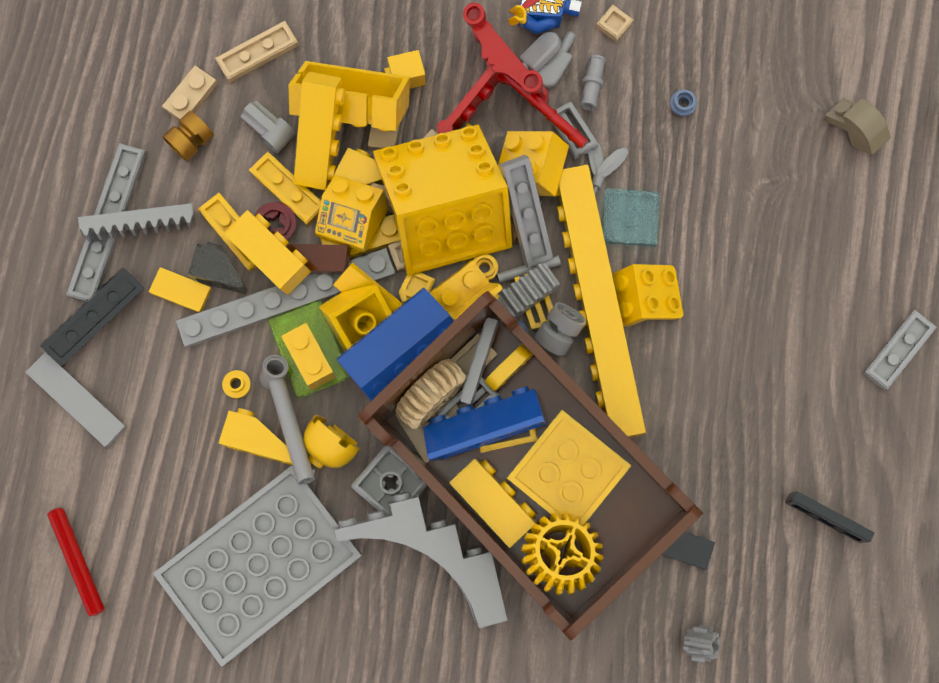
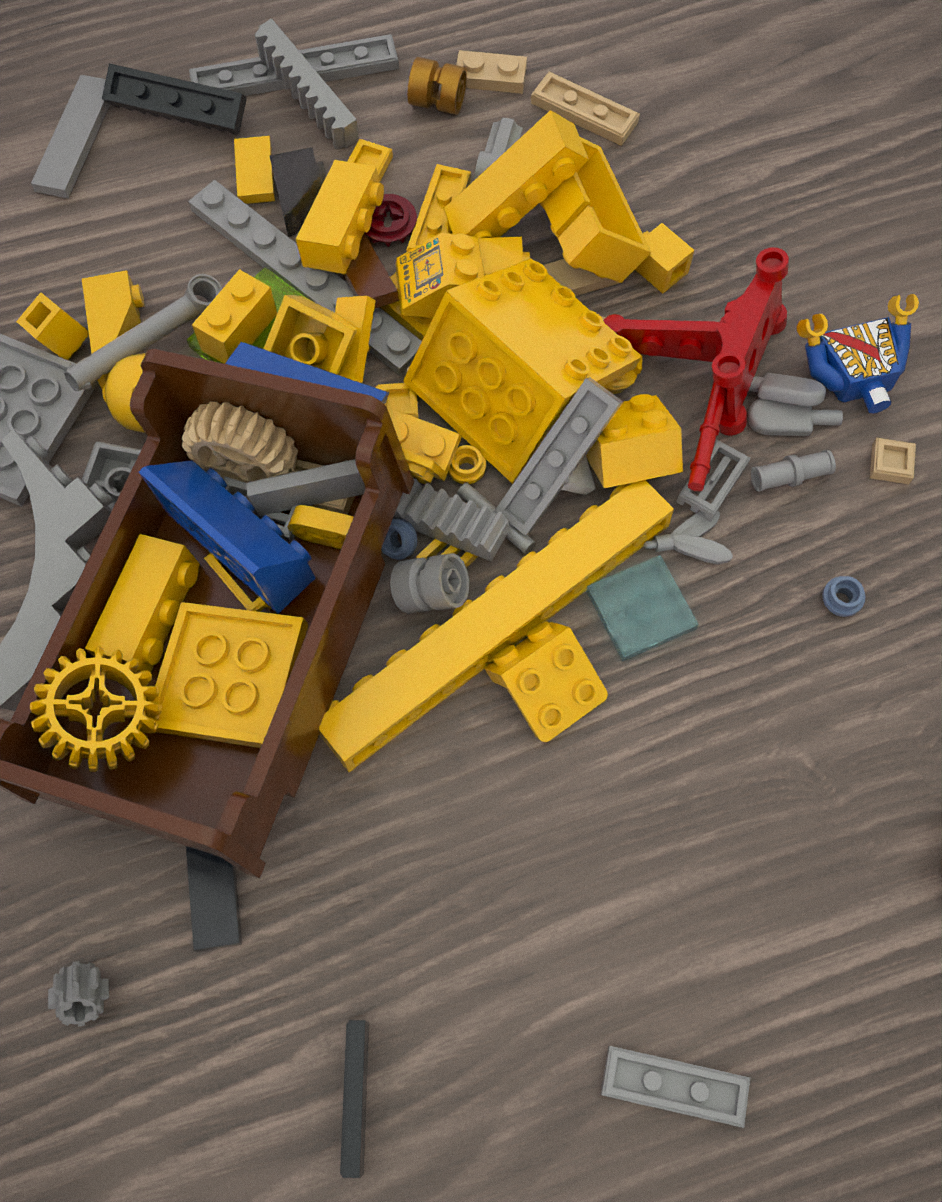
camera: 65 degrees right, 10 degrees down
(242, 390) = (174, 281): yellow plate -> none
(244, 478) = (53, 327): none -> yellow brick

